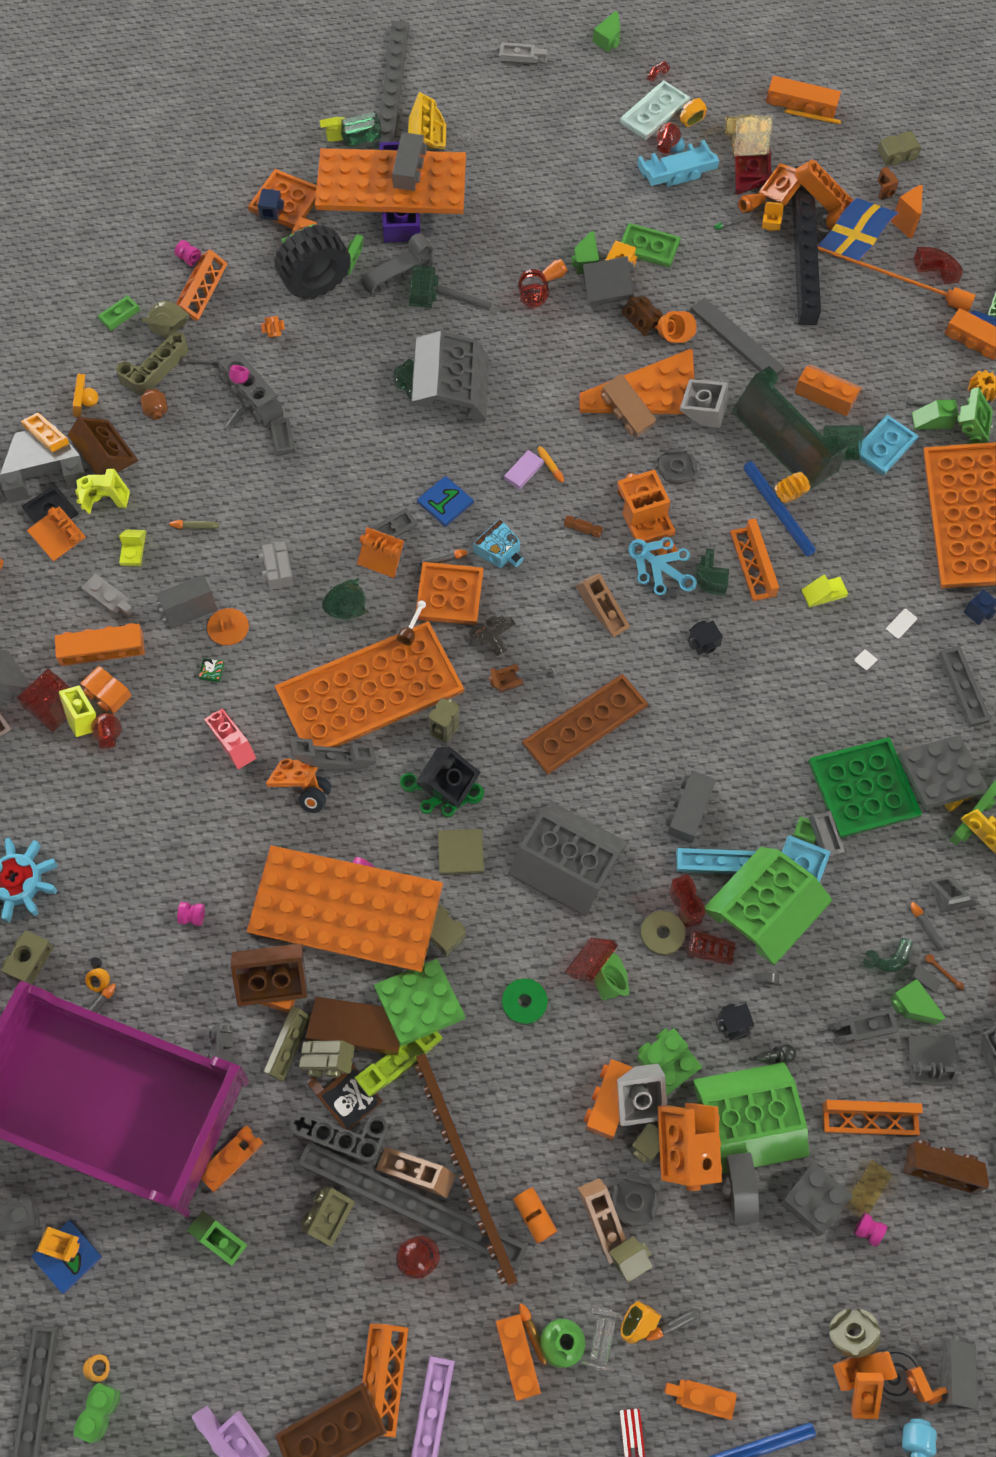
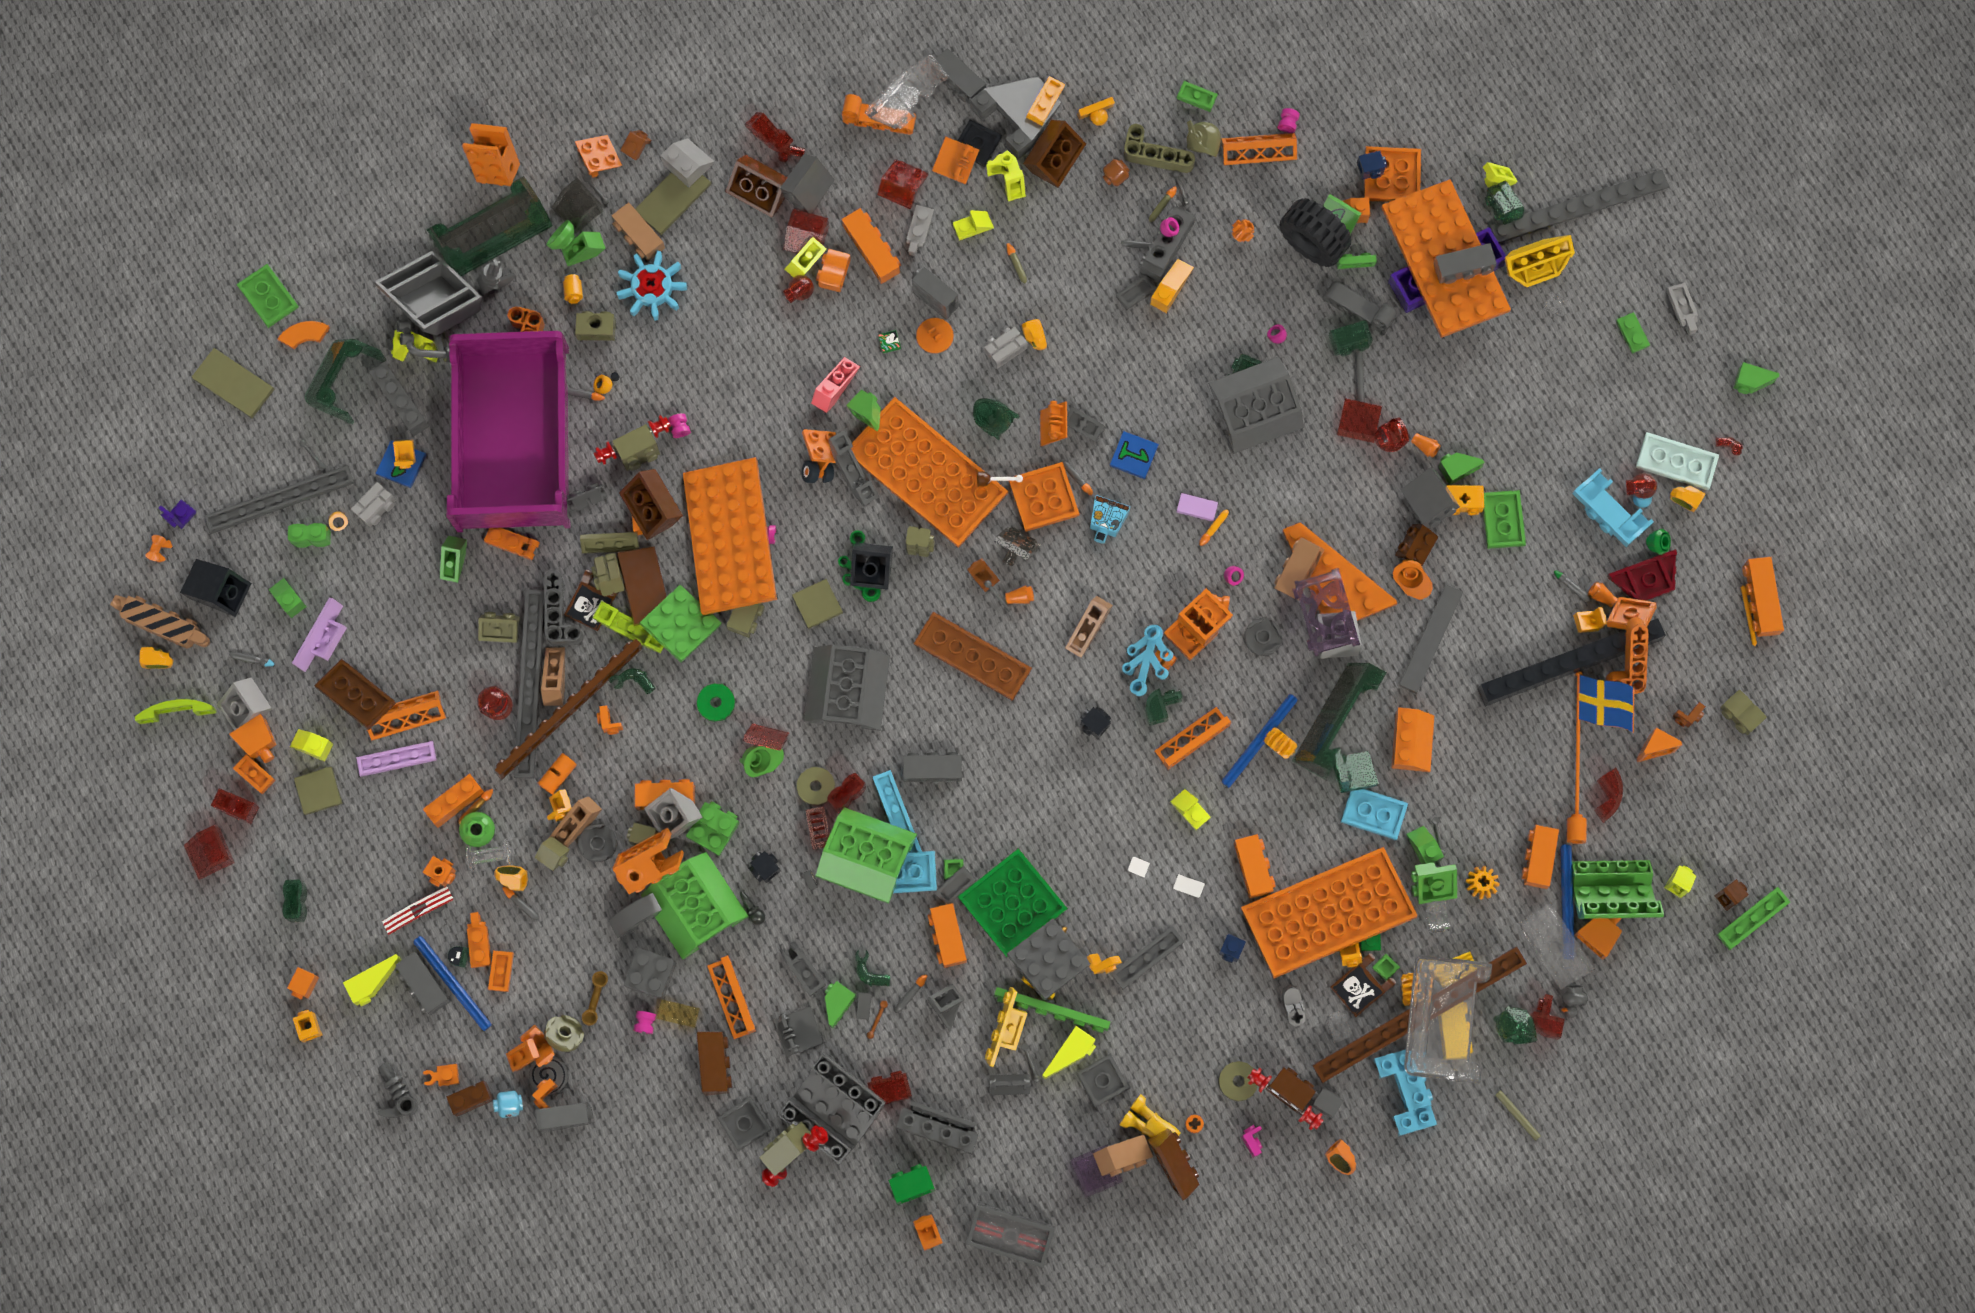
camera: 70 degrees right, 10 degrees up
(51, 591) = (901, 183): none -> clear red bracket
(100, 1311) = (373, 505): none -> light grey brick
(193, 968) = (635, 446): none -> olive brick
(206, 380) = (1162, 204): none -> olive piece
(274, 717) = (866, 409): none -> bright green slope
(278, 532) = (1034, 334): none -> light orange rock
(296, 406) = (1171, 286): none -> light orange slope
(391, 342) = (1280, 337): none -> dark pink piece
(457, 1075) = (638, 676): none -> clear green piece
(492, 1132) = (604, 719): none -> orange bracket
(504, 311) = (1359, 420): none -> clear red tile
(525, 95) = (1633, 332): none -> bright green plate
(542, 653) = (1022, 595): none -> orange cone
(575, 1227) = (560, 804): none -> light orange bracket
(583, 526) = (1162, 580): dark orange axle -> none
(591, 1414) = (433, 871): none -> orange brick
(602, 469) = (1228, 573): none -> dark pink piece
(702, 380) = (1347, 631): none -> fence
(711, 1431) = (458, 956): none -> tile
(722, 145) = (1659, 541): none -> green cone
(749, 133) = (1680, 558): clear yellow brick -> none
(750, 1383) = (501, 971): none -> orange plate
(840, 1294) = (599, 980): none -> pearl gold bar
(879, 862) = (947, 935): none -> orange brick
(904, 558) = (1254, 866): none -> orange brick
(963, 723) = (1108, 965): none -> light orange bracket

